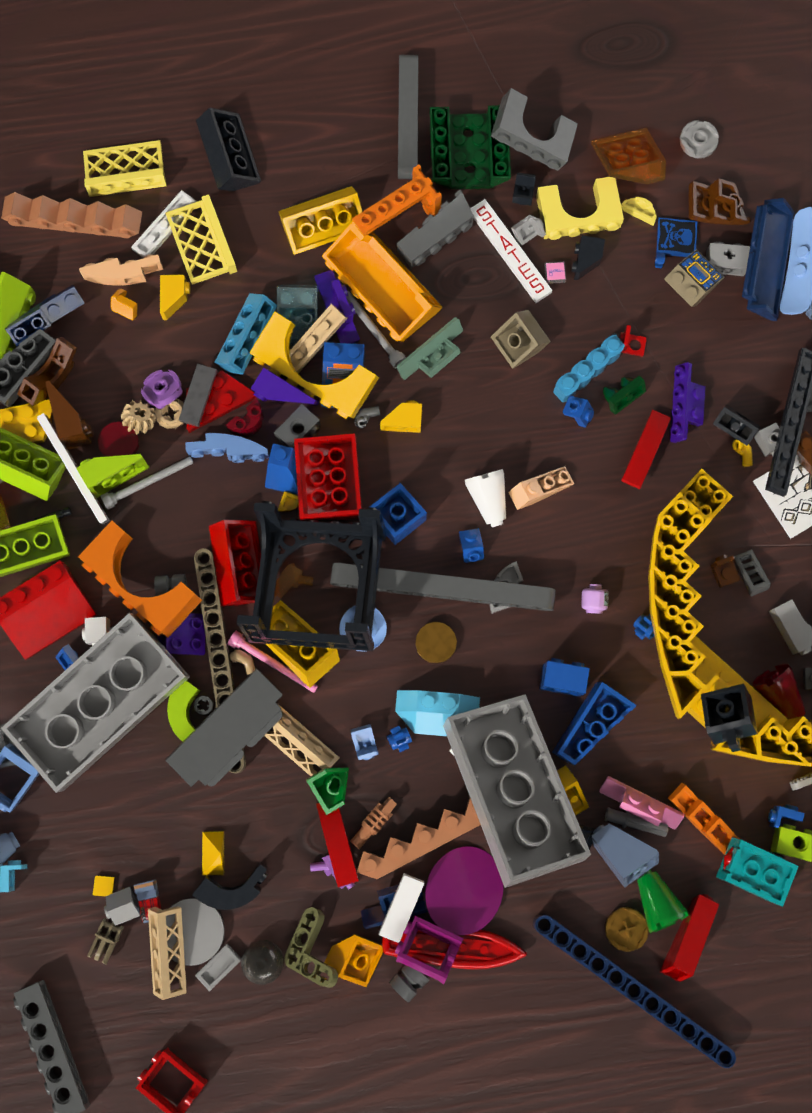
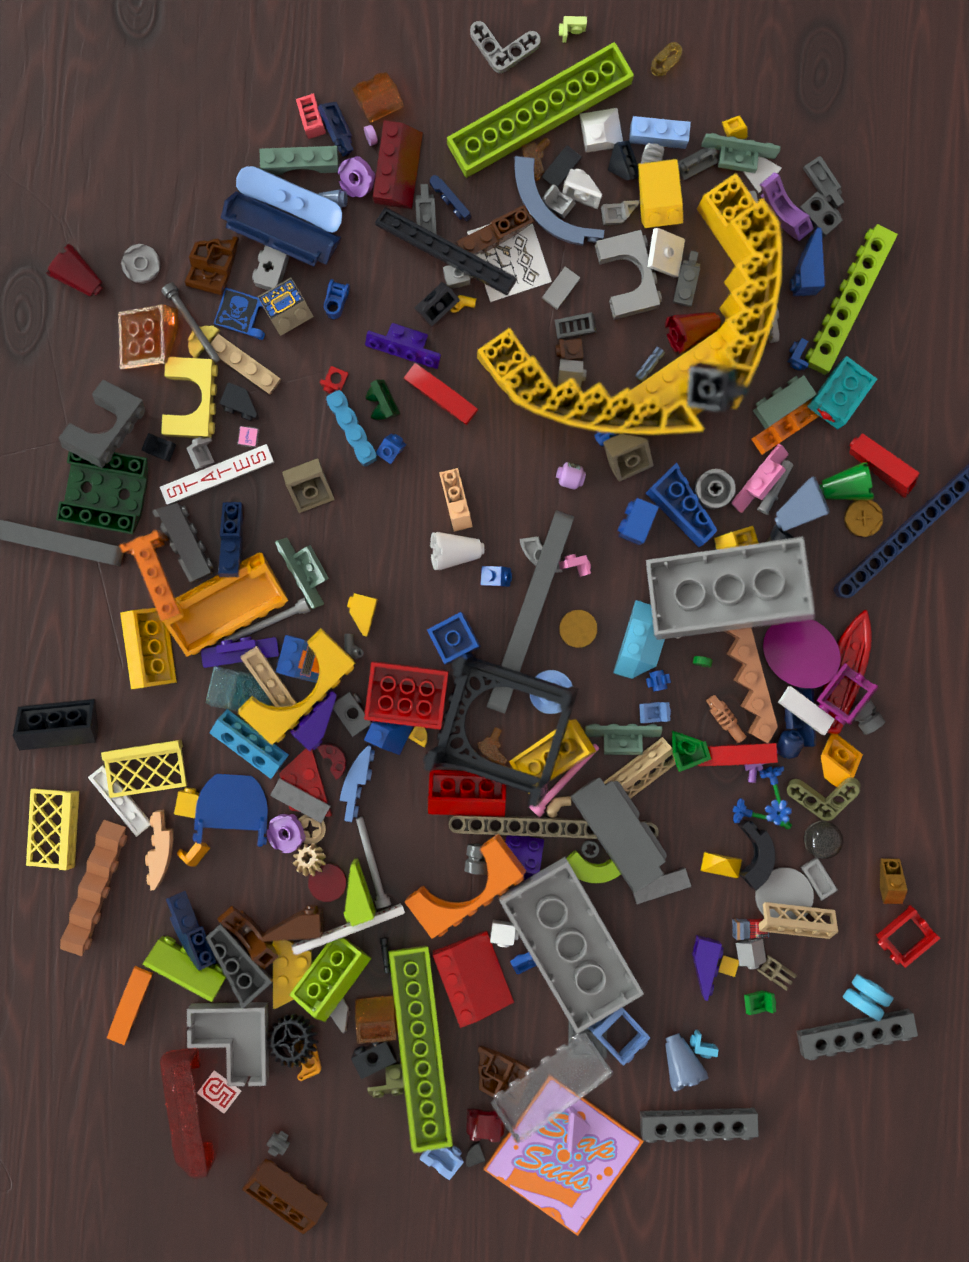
camera: 70 degrees left, 10 degrees up
(68, 928) = (760, 1002): none -> green bracket
(94, 1051) = (868, 997): none -> medium azure wheel
(107, 856) = (705, 957): none -> dark purple slope
(178, 793) = (664, 885): none -> flat silver tile
(181, 330) = (231, 804): none -> blue piece
(230, 1052) = (892, 881): none -> pearl gold slope
(282, 898) = (778, 811): none -> blue plant
(329, 715) = (623, 739): none -> sand green bracket
(360, 899) = (790, 744): none -> dark blue head
(430, 782) = (702, 661): none -> green tile
(448, 276) = (231, 539): none -> dark blue slope
(505, 619) = (582, 563): none -> bright pink bracket
(622, 742) = (720, 480): none -> light grey brick
(626, 254) = (245, 364): none -> tan plate
(631, 652) = (628, 455): none -> dark tan slope
(675, 77) = (74, 272): none -> dark red cone
(678, 172) = (171, 291): none -> dark grey piece
(703, 577) = (571, 369): none -> light grey brick
(718, 327) = (336, 295): none -> blue piece
(731, 810) = (784, 401): none -> sand green brick
(733, 658) = (649, 364): none -> sand blue axle
(786, 549) = (561, 288): none -> light grey tile

